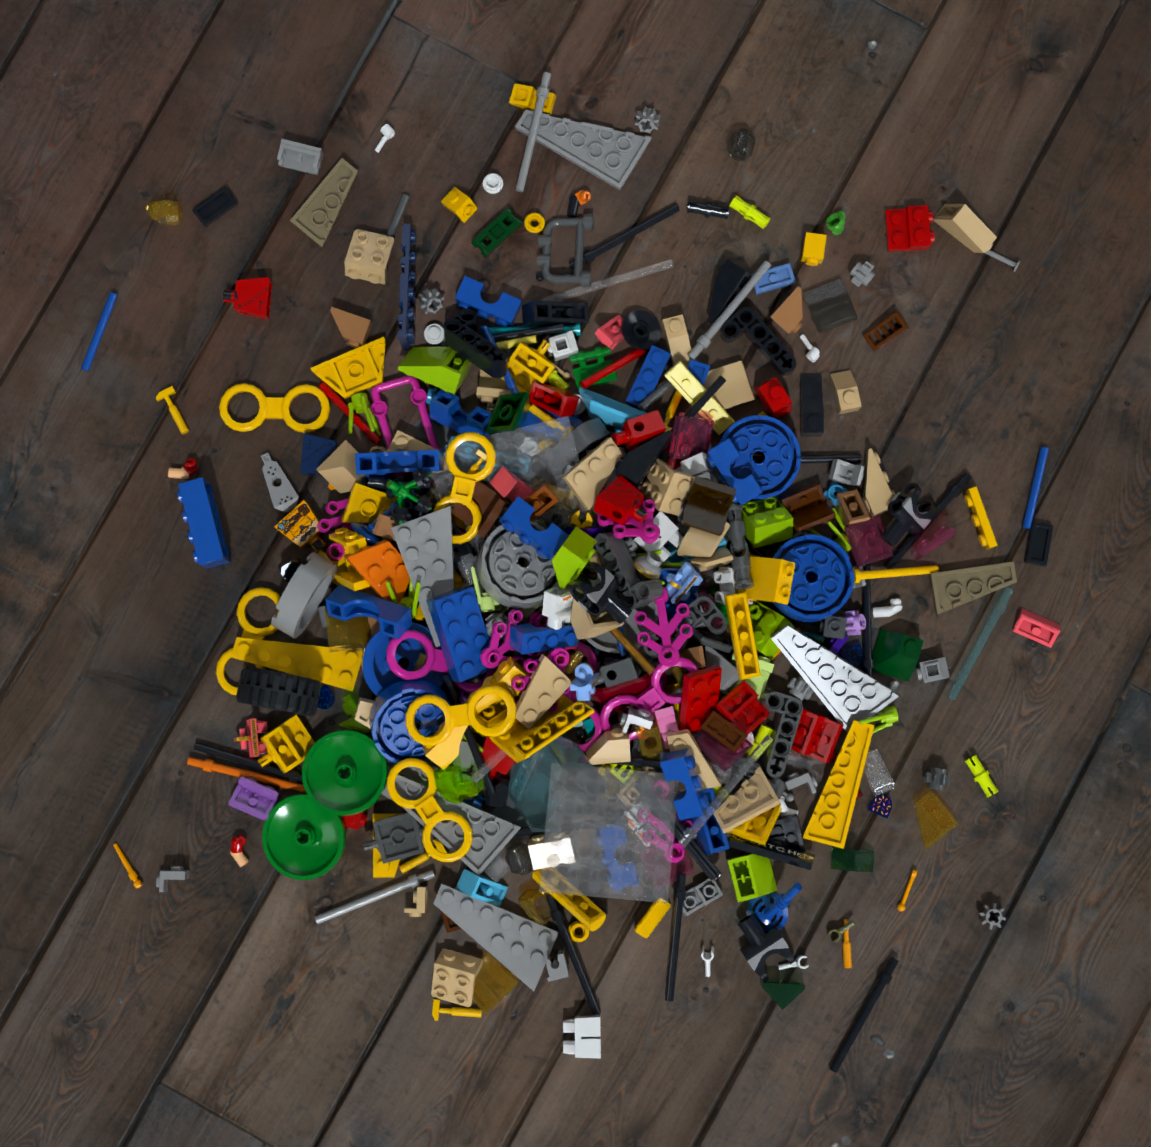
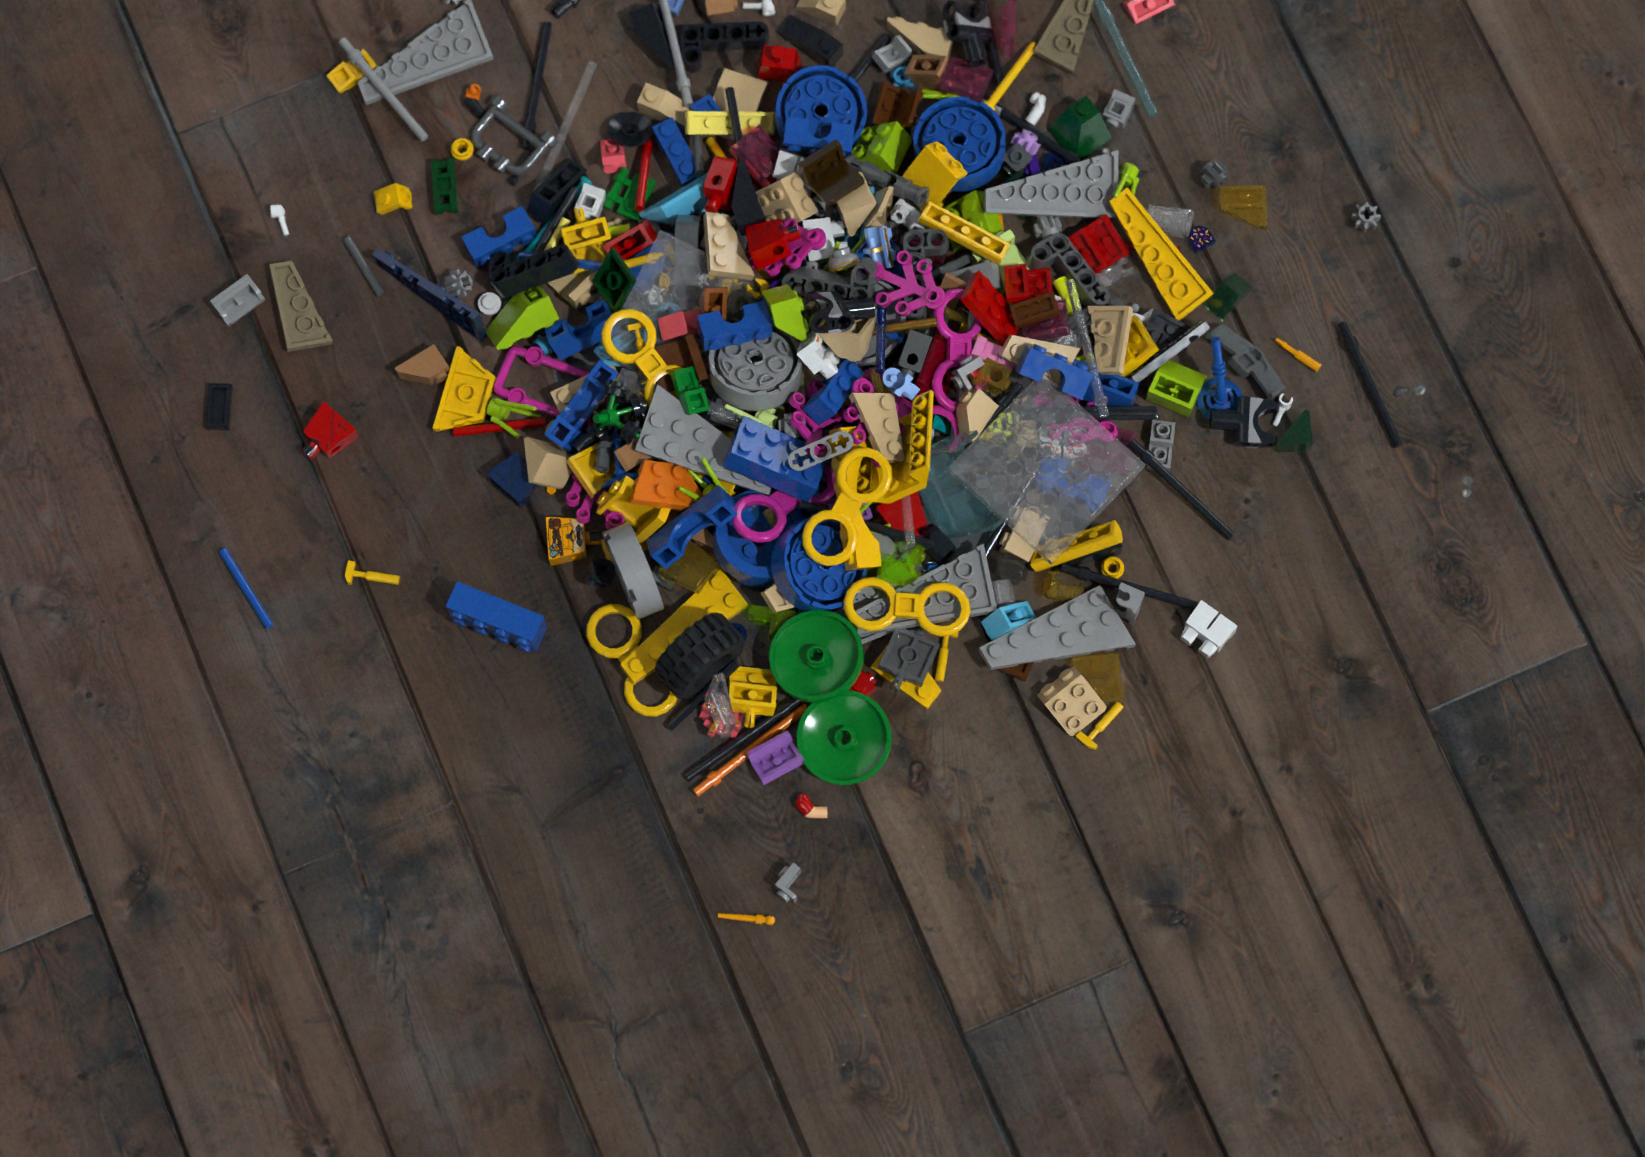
camera: 55 degrees left, 10 degrees down
(165, 212) = (188, 450): clear yellow rock -> none
(185, 472) = (434, 603): arm -> none
(253, 735) = (720, 706): none -> clear wing
(260, 712) = (699, 698): none -> black bar
(274, 408) = (441, 487): yellow bar -> none
(282, 491) = (520, 536): light grey piece -> none
(368, 256) = (376, 306): tan bracket -> none
(376, 506) = (604, 451): none -> dark grey pin
(412, 881) = (957, 676): light grey bar -> none
(419, 898) = (980, 680): tan bracket -> none
(463, 532) = (688, 390): none -> green slope
(492, 183) = (398, 158): white plate -> none
(495, 678) = (806, 463): none -> light grey beam
(606, 642) = (880, 340): none -> clear blue bar
(651, 918) = (1148, 497): yellow slope -> none
(707, 957) = (1220, 477): white hand -> none
(794, 780) = (1130, 280): light grey bracket -> none
(812, 912) = (1248, 360): none -> dark grey plate
(841, 930) = (1282, 349): olive hand -> none
(901, 907) = (1300, 286): light orange hinge -> none
(981, 776) = (1239, 138): neon yellow pin -> none

